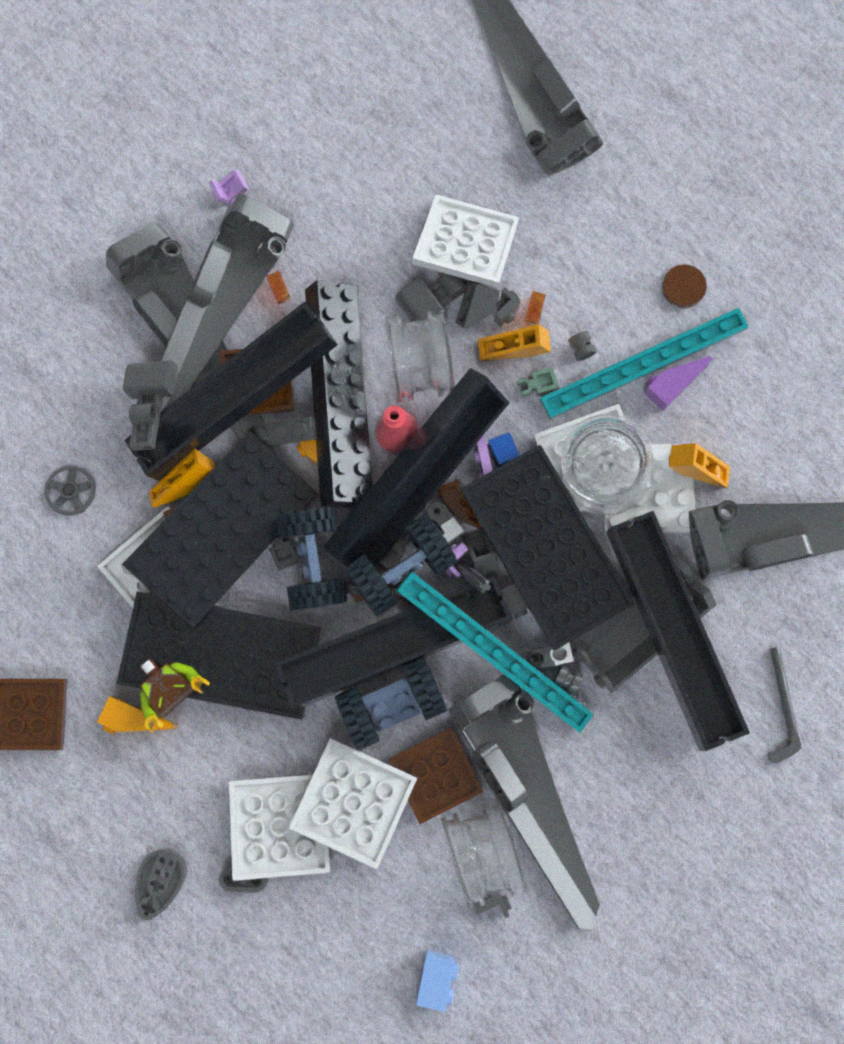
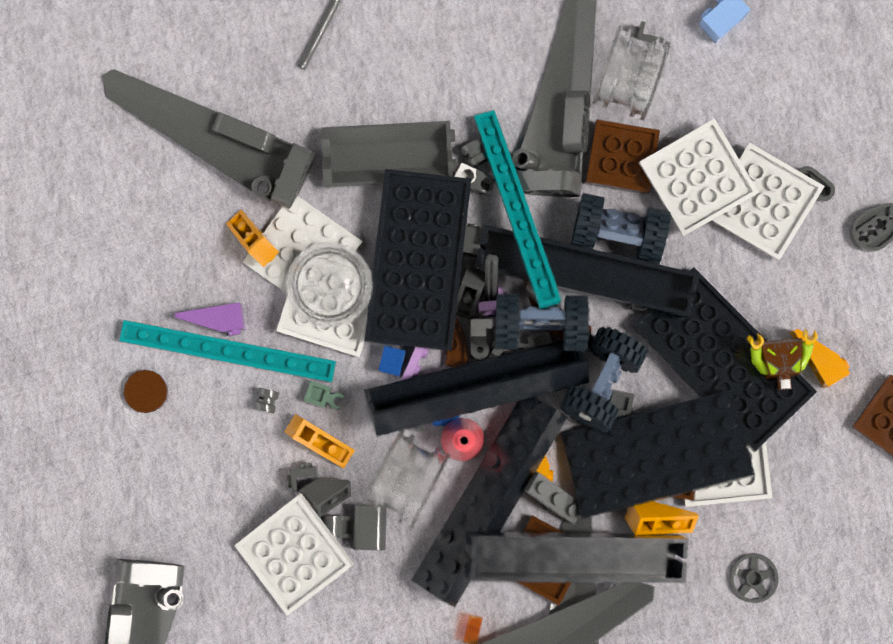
camera: 145 degrees left, 5 degrees up
(148, 384) = (635, 610): dark grey plate -> none
(535, 307) = (278, 460): clear orange piece -> none
(677, 632) = (369, 128): black piece -> none

